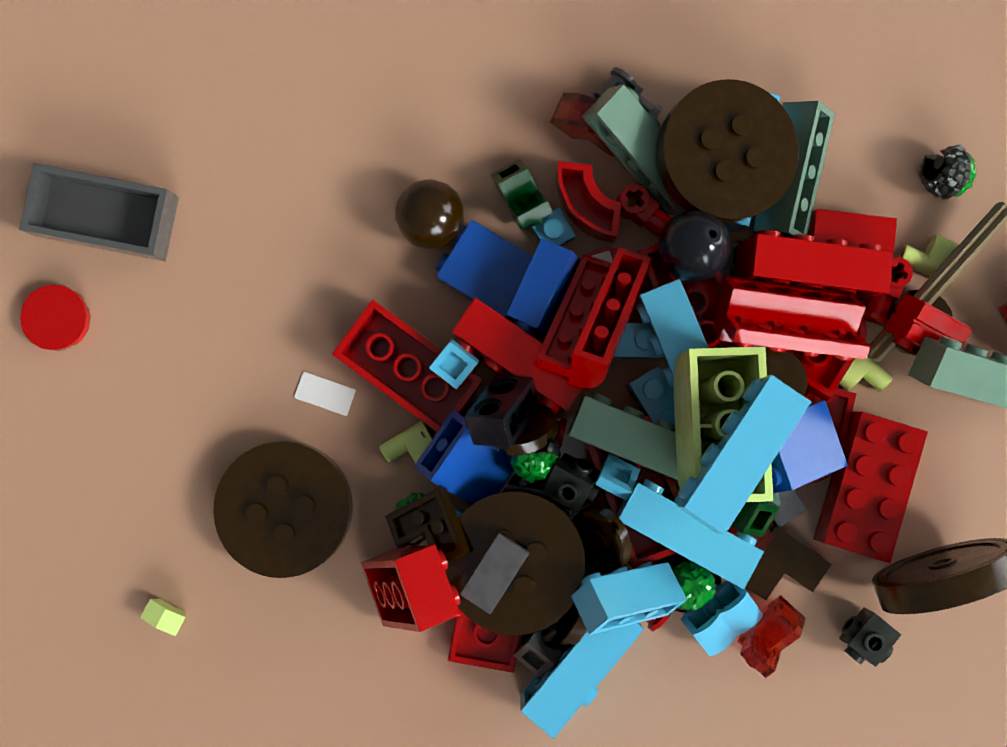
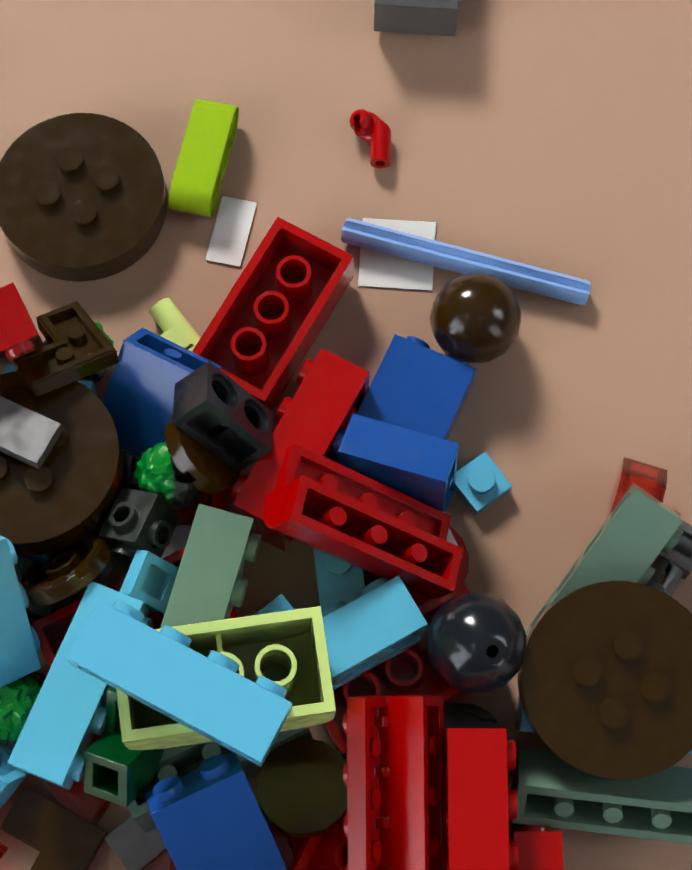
camera: 80 degrees right, 15 degrees down
(257, 271) = (375, 134): none -> red arm
(262, 408) = (203, 157): none -> lime beam
(360, 268) = (389, 271): none -> white sticker
(375, 217) = (465, 261): none -> light blue axle
(454, 364) = (279, 357): medium azure plate -> none
(521, 194) = (519, 432): dark green brick -> none
(586, 203) = (522, 510): red brick -> none
(645, 210) = (524, 598): red connector -> none

